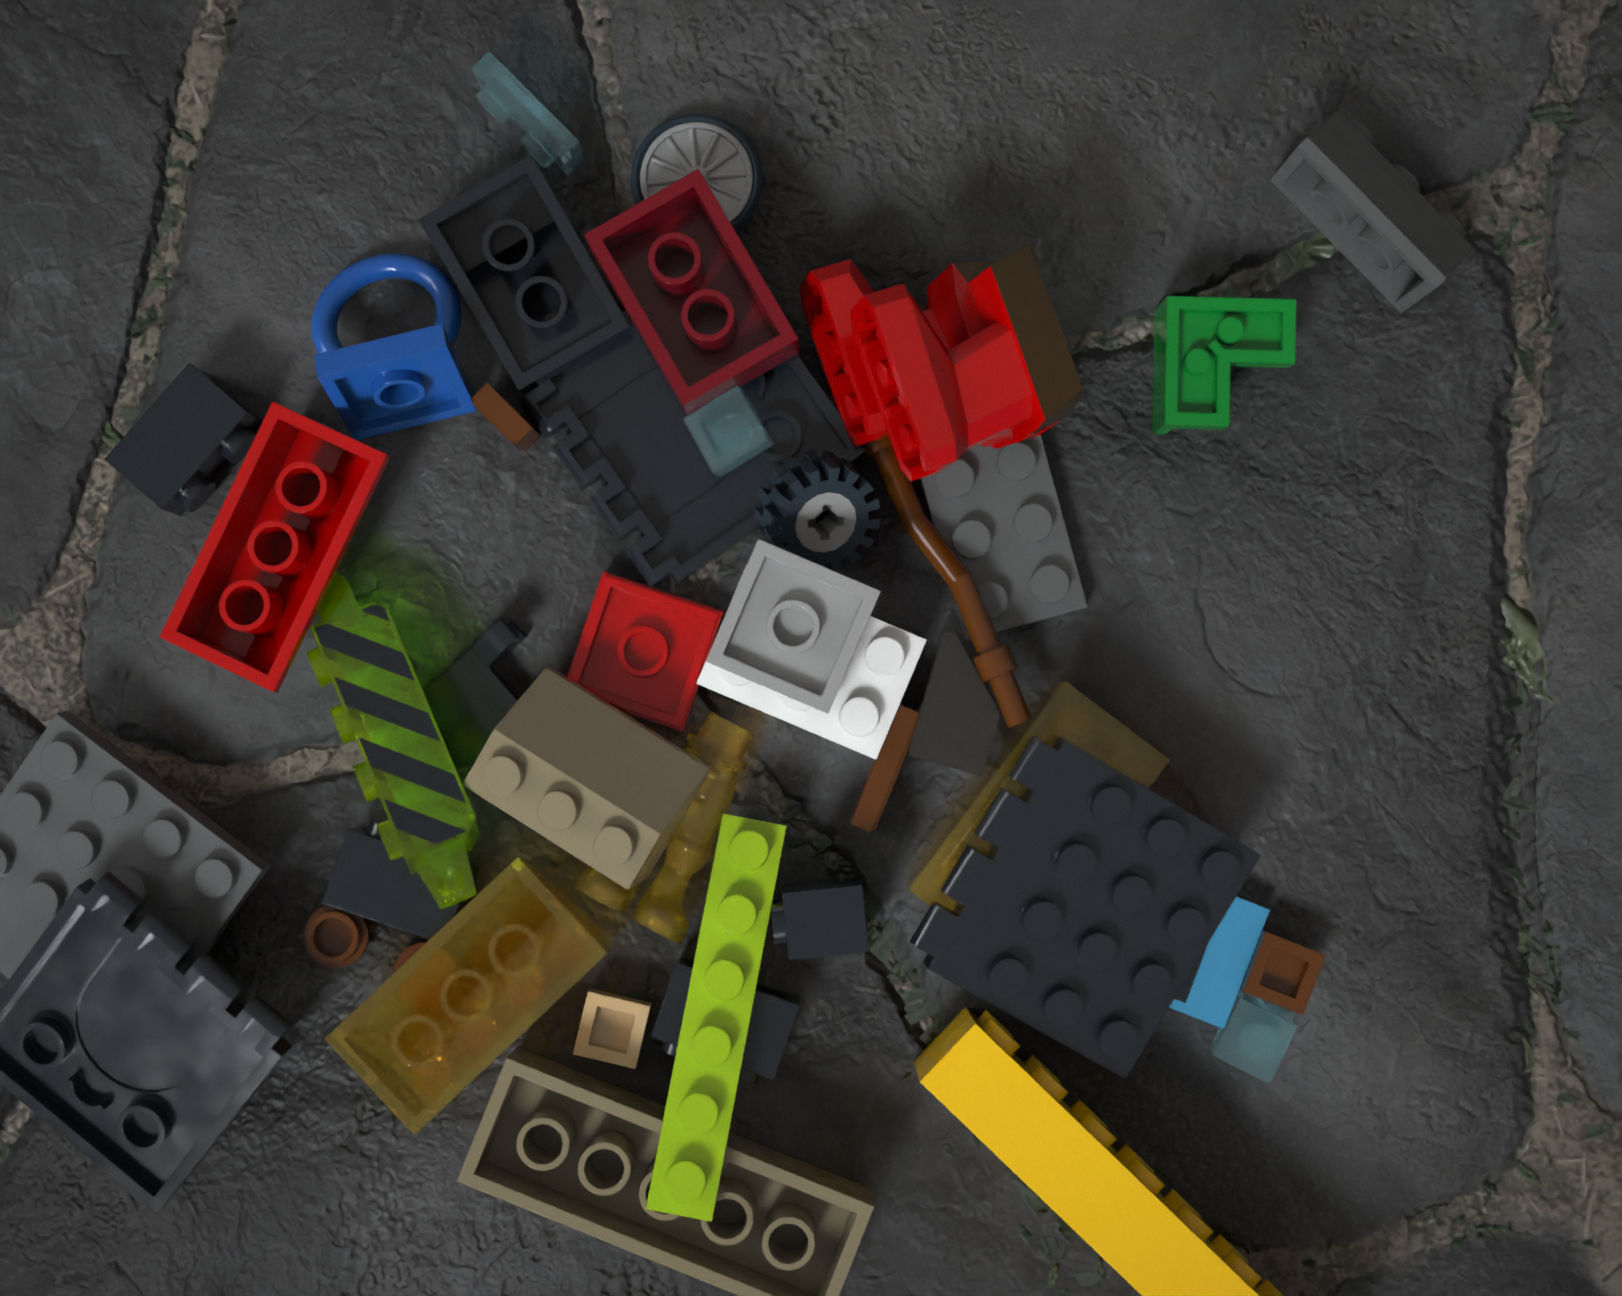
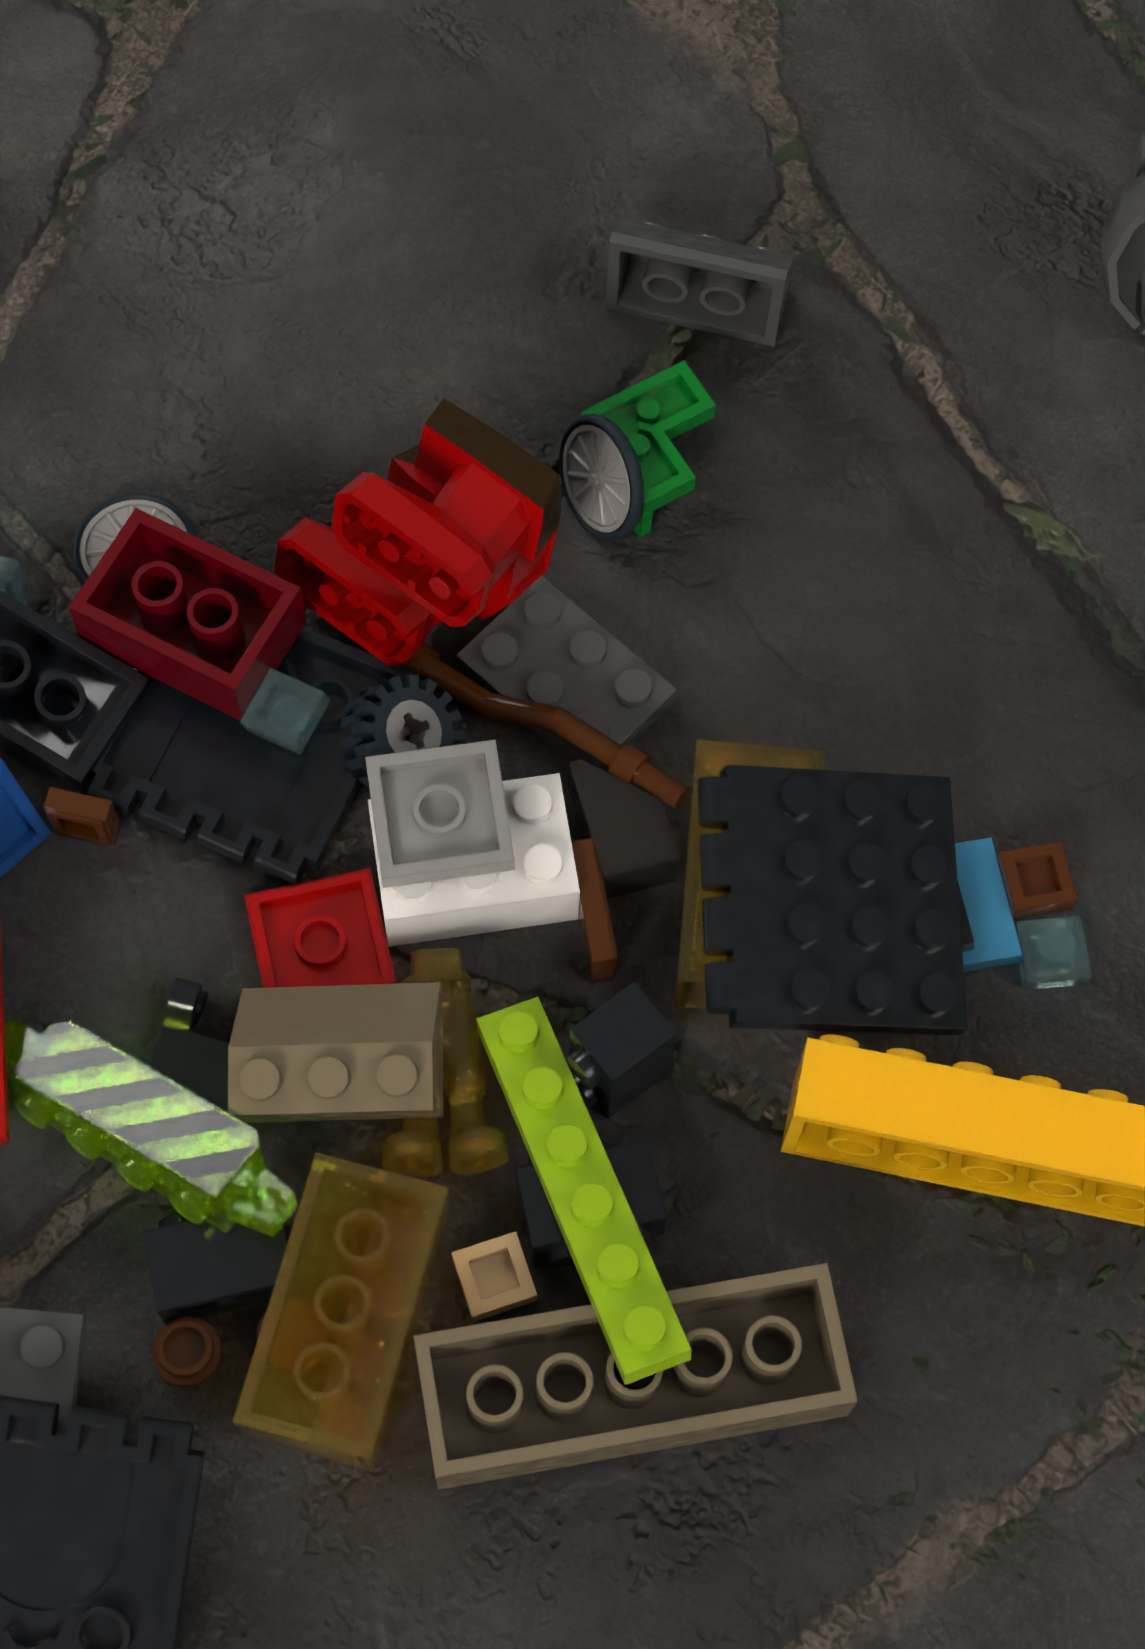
camera: 35 degrees left, 20 degrees down
(1147, 368) = (601, 477): none -> light grey wheel

